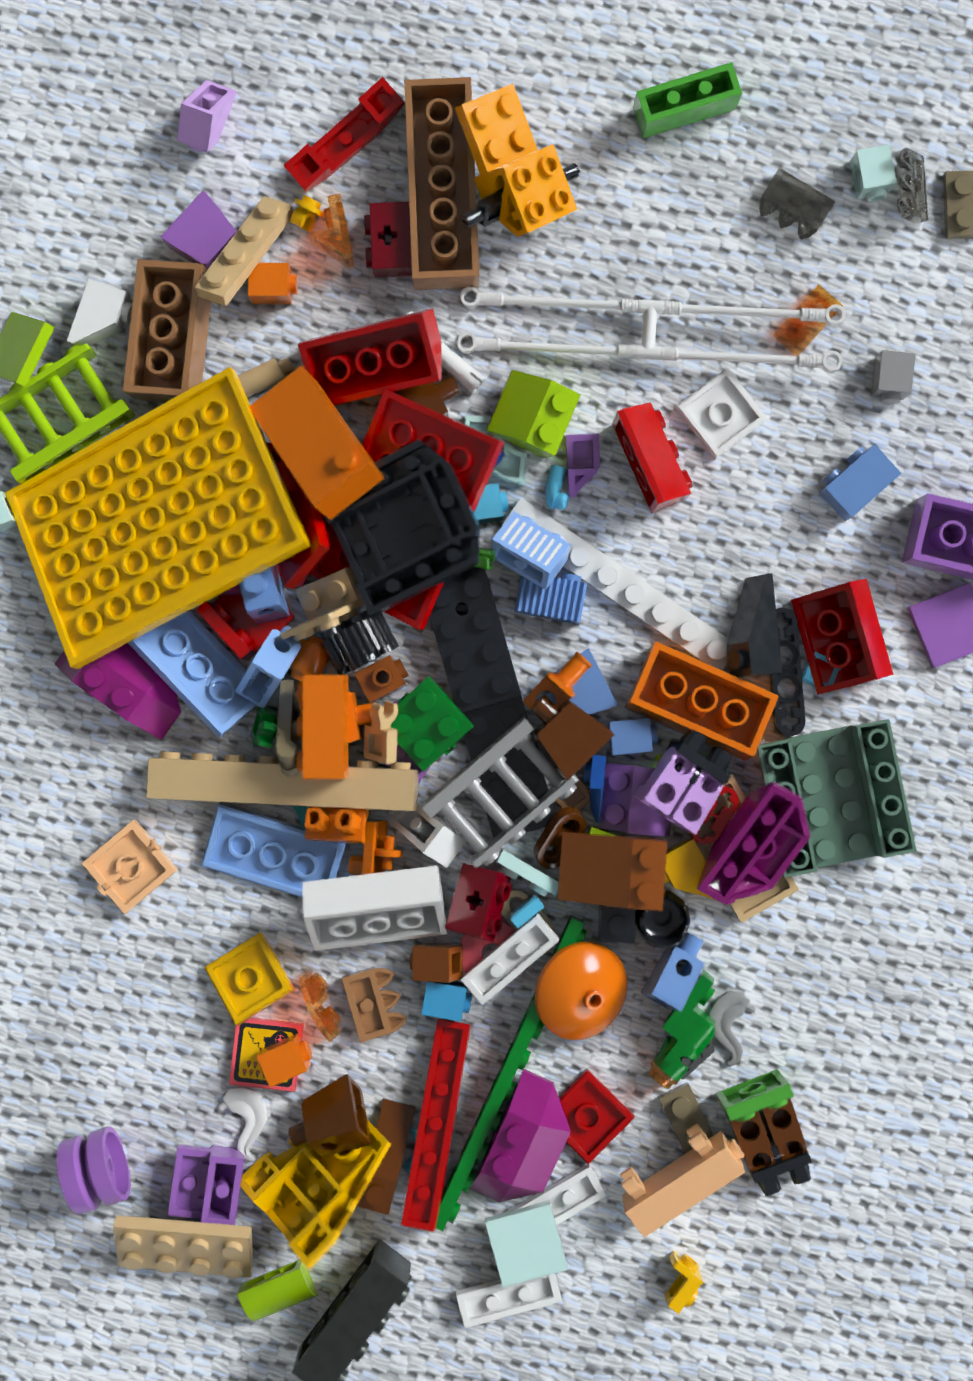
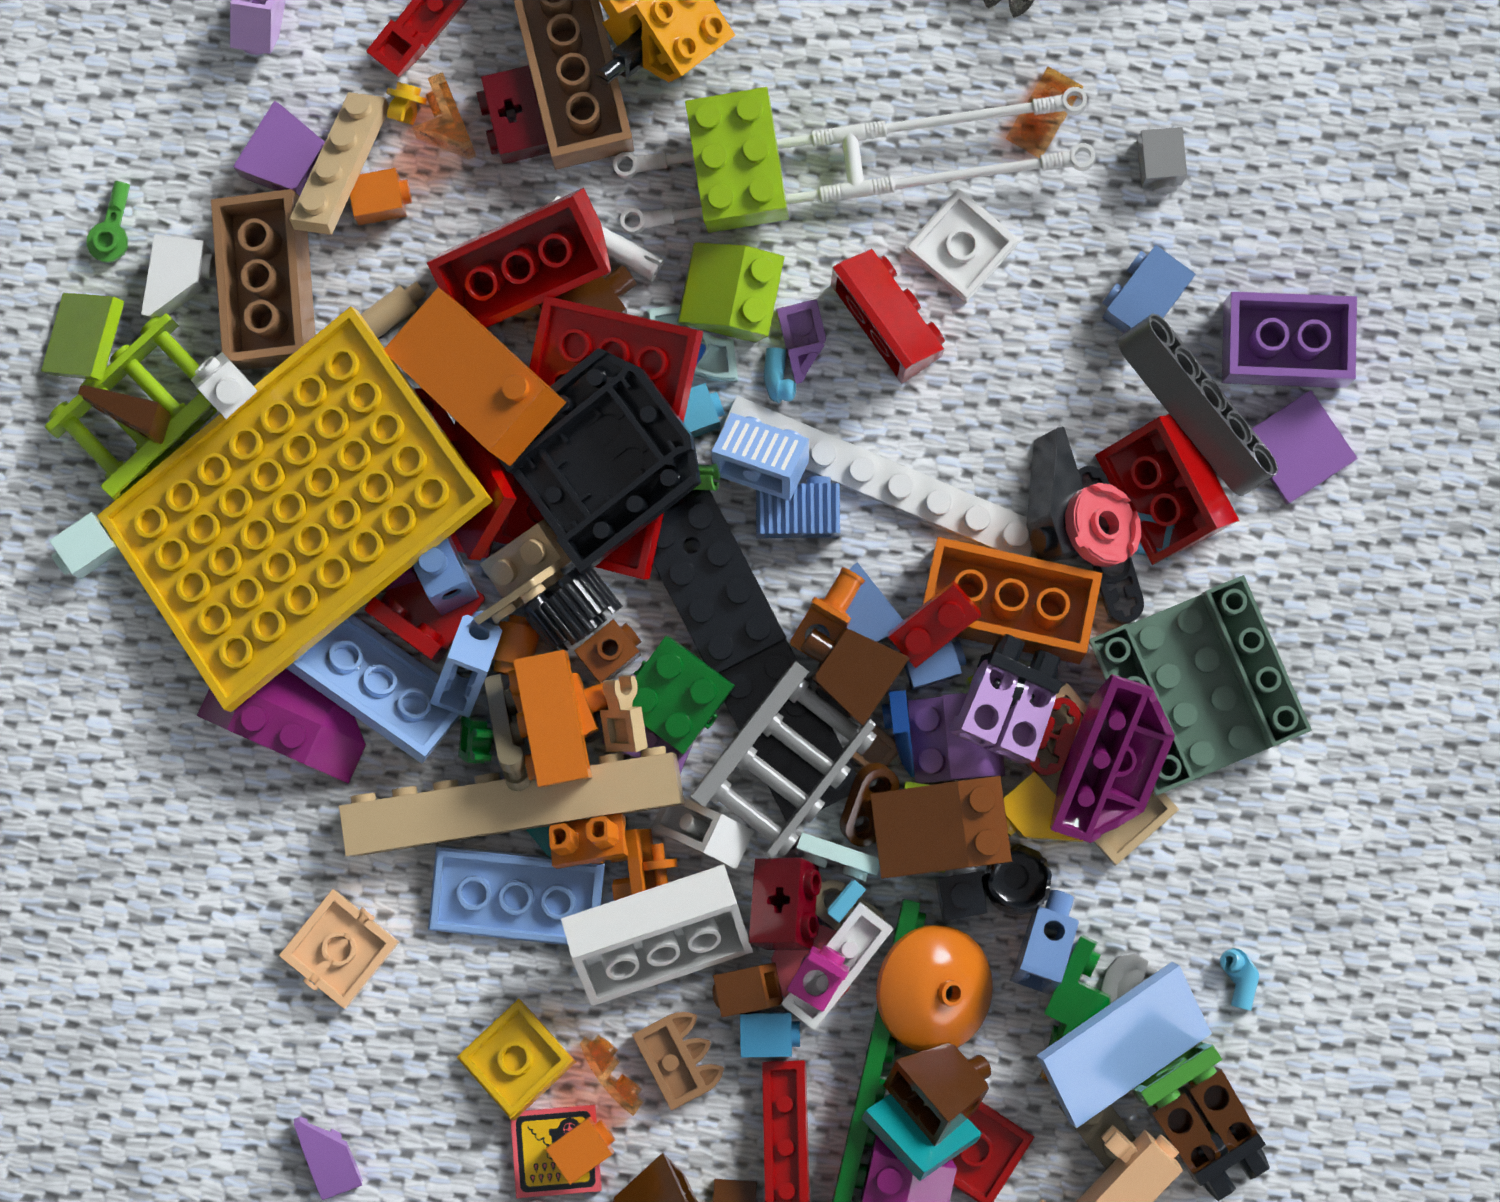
camera: 10 degrees left, 5 degrees down
(50, 421) = (136, 413): none -> reddish brown slope
(53, 275) = (107, 239): none -> bright green plate
(90, 1025) = (328, 1159): none -> medium lavender slope
(118, 409) = (223, 384): none -> white brick
(503, 957) = (826, 961): none -> dark pink bracket
(549, 1095) = (910, 1144): none -> teal tile
(558, 309) = (737, 160): none -> lime brick
(569, 1069) = (939, 1088): none -> reddish brown torso
(639, 710) = (934, 624): none -> red plate
(718, 1063) = (1124, 1044): none -> light blue tile
(772, 657) = (1084, 527): none -> coral tile
(821, 1026) = (1244, 976): none -> medium azure arm
(881, 577) = (1197, 404): none -> dark grey beam

